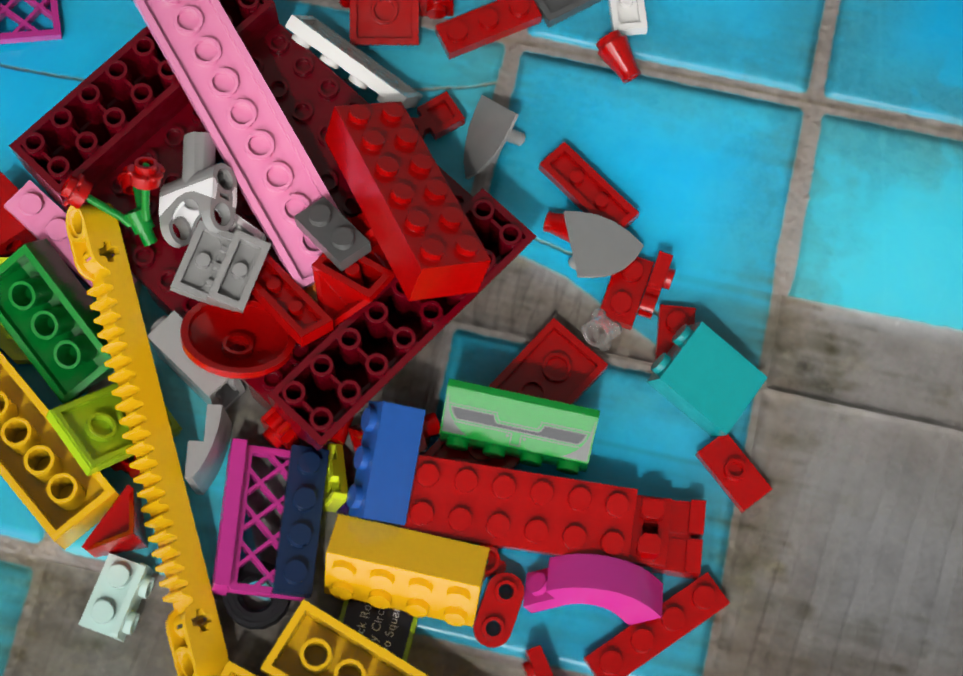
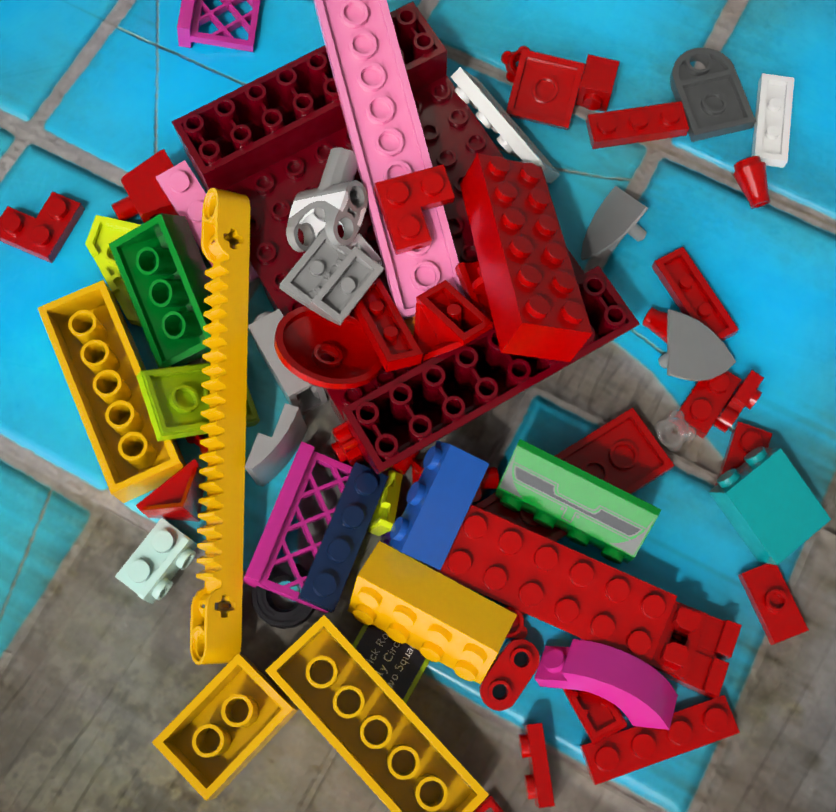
camera: 20 degrees right, 0 degrees up
(135, 180) = (277, 181): plant -> none
(273, 172) = (404, 200): none -> red plate
(333, 233) = (444, 272): dark grey plate -> none
(438, 117) = (571, 196): red plate -> none
(590, 623) = (597, 715): none -> red plate

